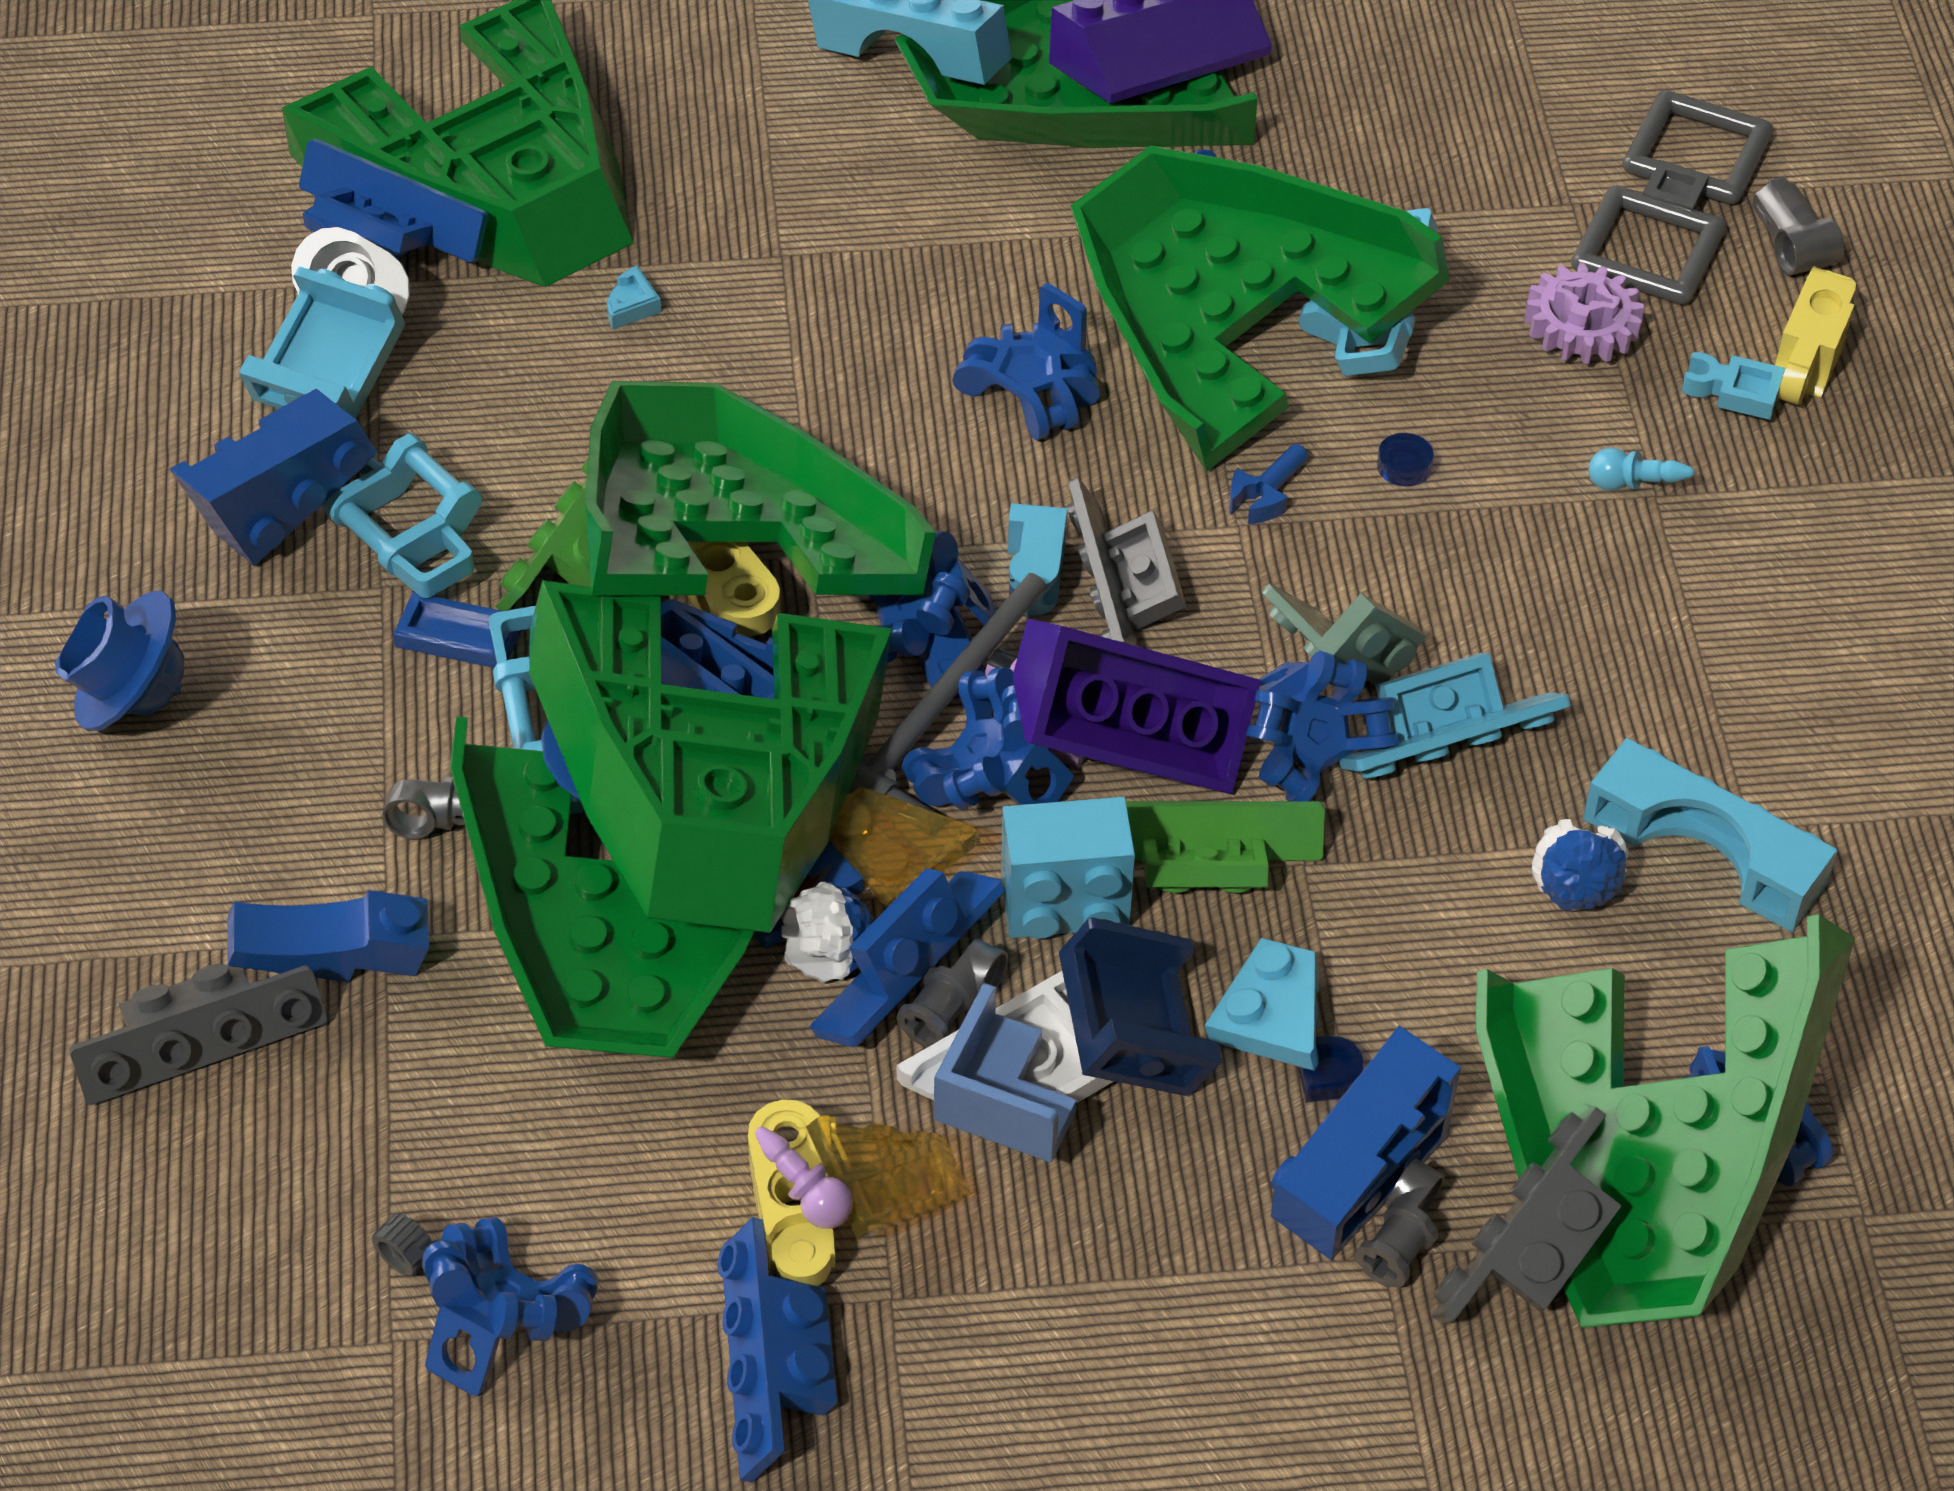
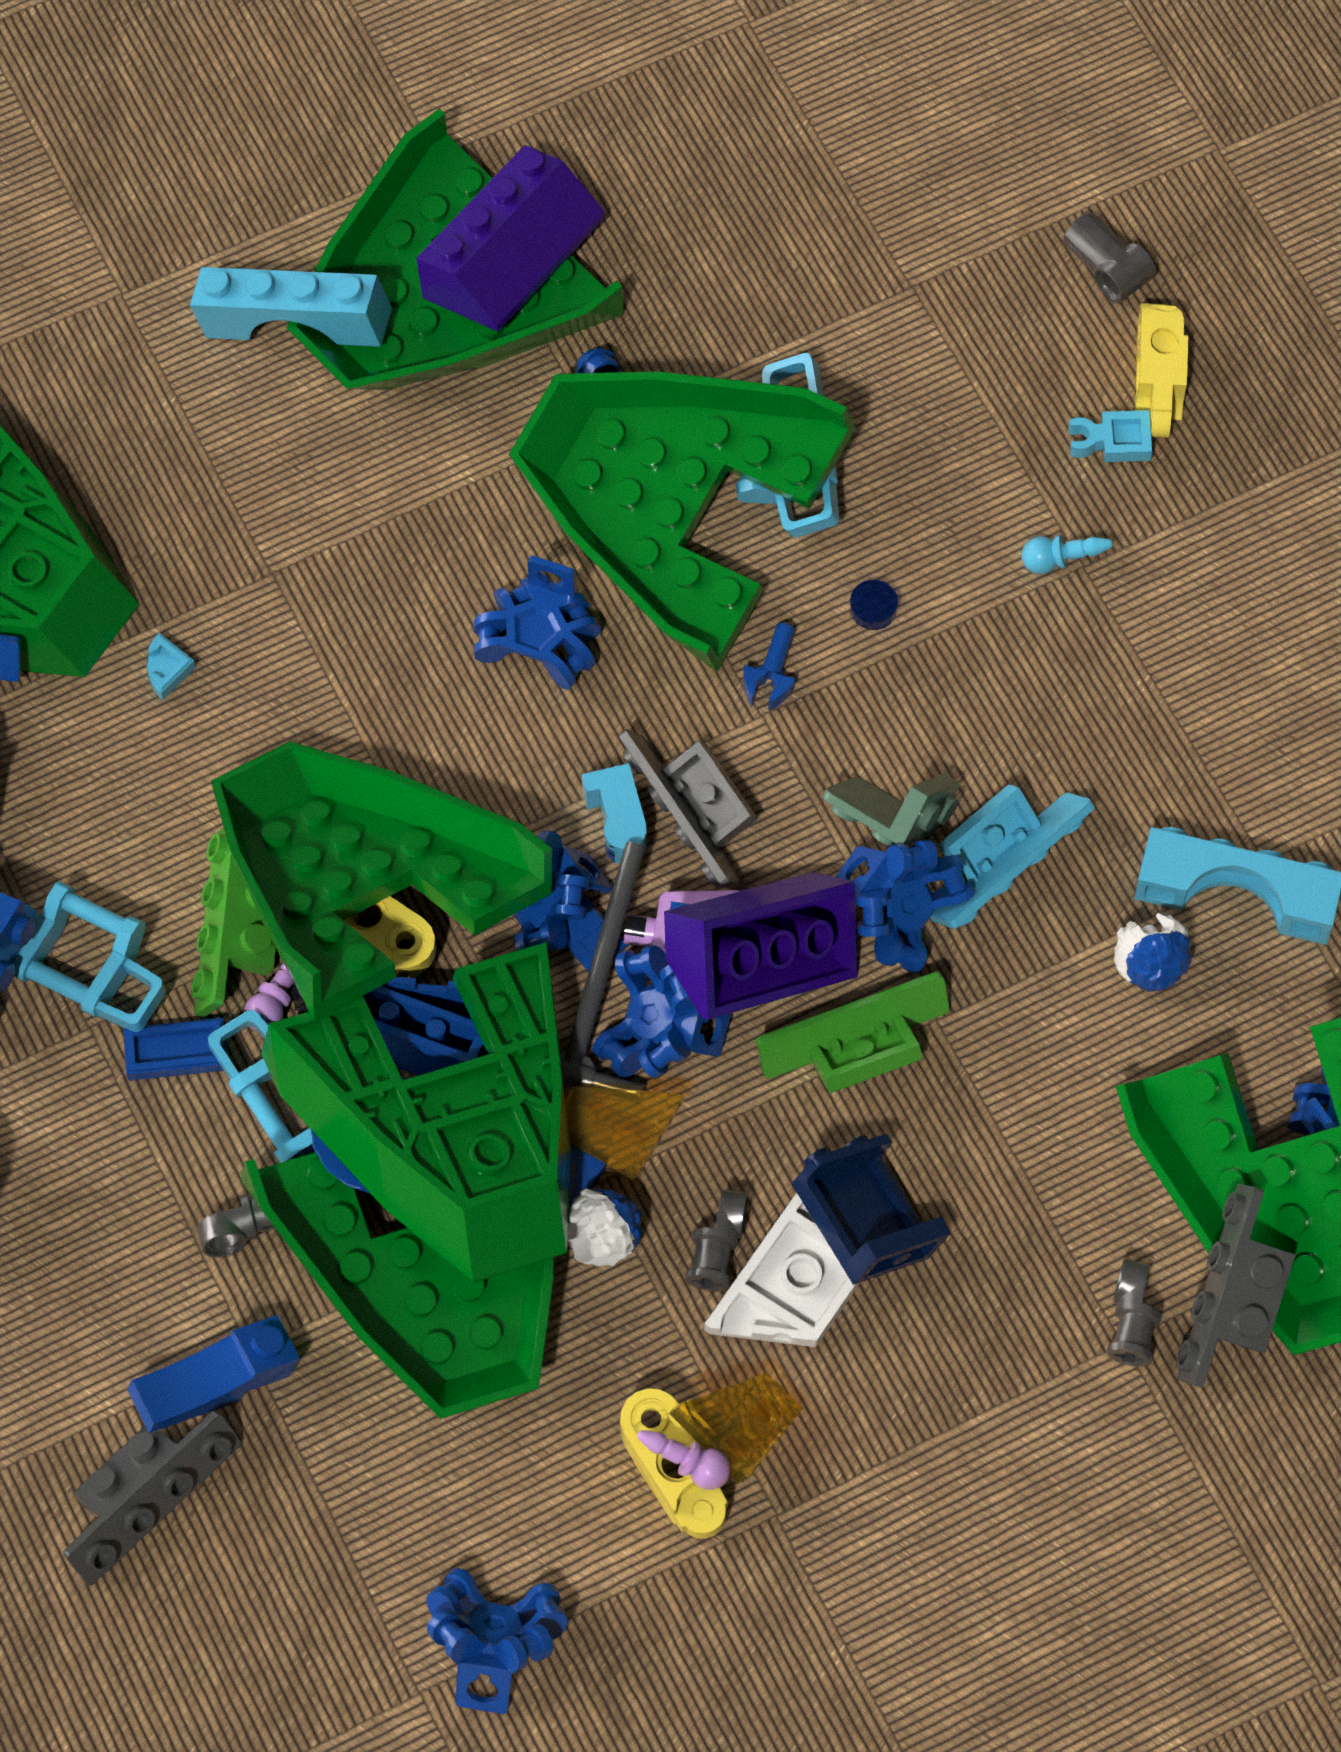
camera: 20 degrees left, 15 degrees up
(402, 1243) = (397, 1615): dark grey axle -> none
(775, 1349) = (711, 1593): blue bracket -> none
(903, 947) = (670, 1222): blue bracket -> none
(984, 1085) = (786, 1327): medium blue panel -> none
(1066, 865) = (767, 1106): medium azure brick -> none
(1271, 1006) = (965, 1162): medium azure wing -> none
(1336, 1071) = (1024, 1197): clear blue tile -> none
(1357, 1154) = (1083, 1263): blue wedge -> none
(1584, 313) = (945, 402): lavender gear -> none
(1674, 195) = (994, 252): dark grey bar -> none

